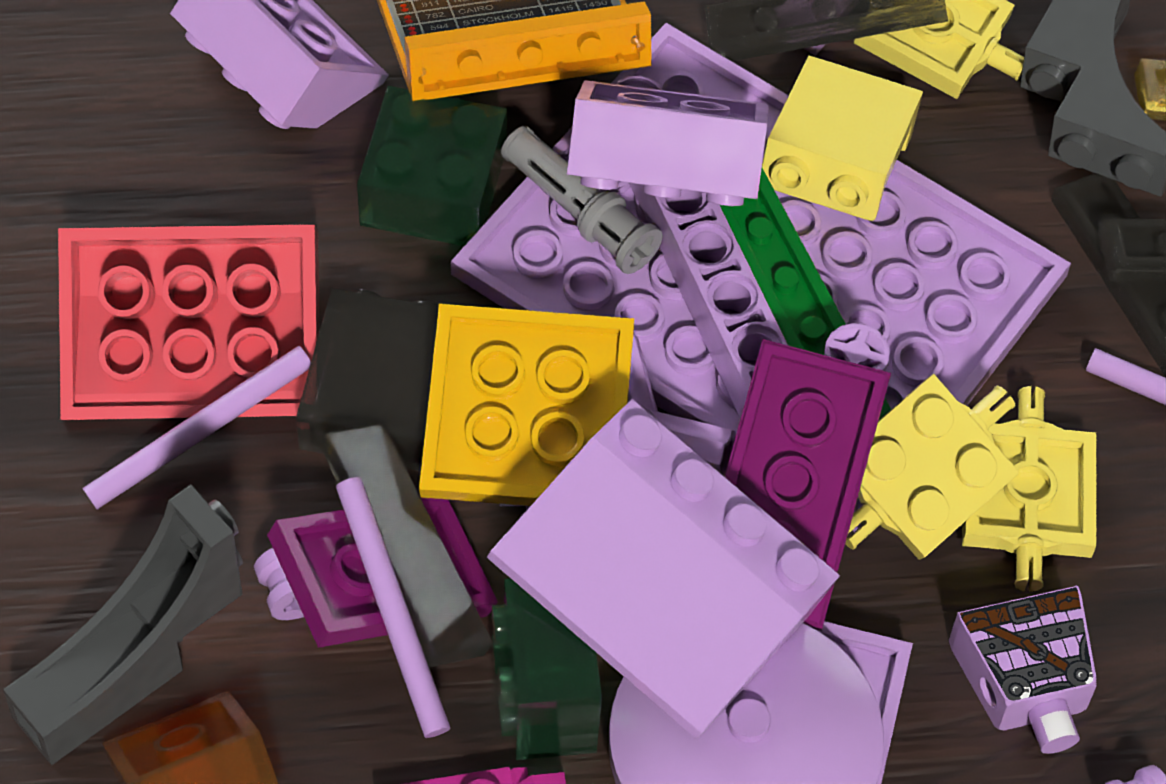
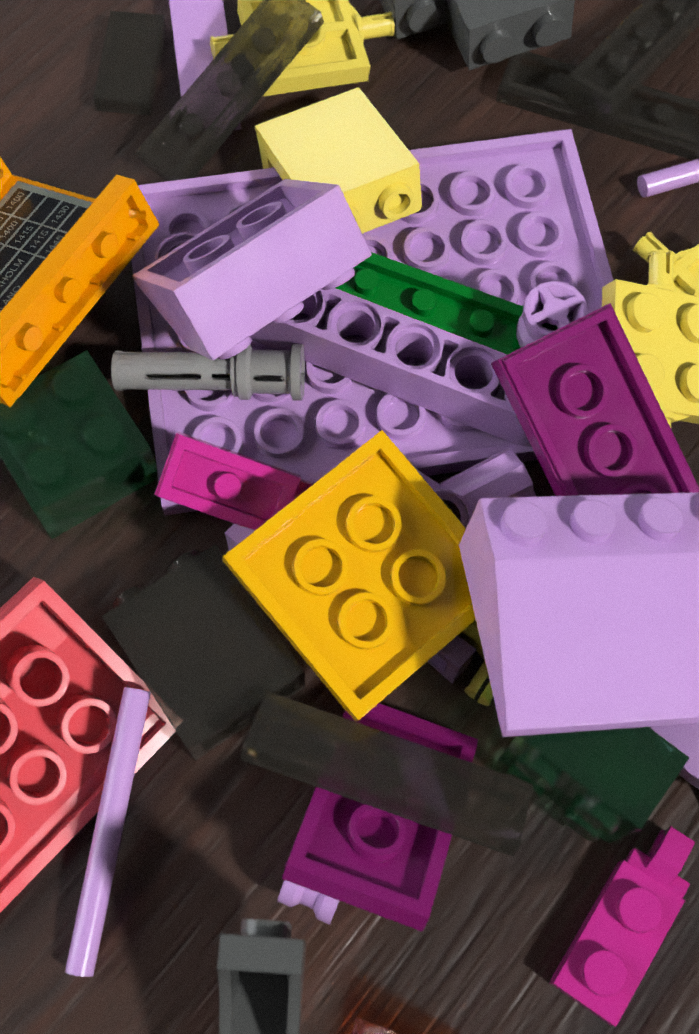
camera: 45 degrees left, 10 degrees up
(393, 607) = (442, 838): lavender bar -> none
(501, 266) = (226, 483): none -> dark pink hinge

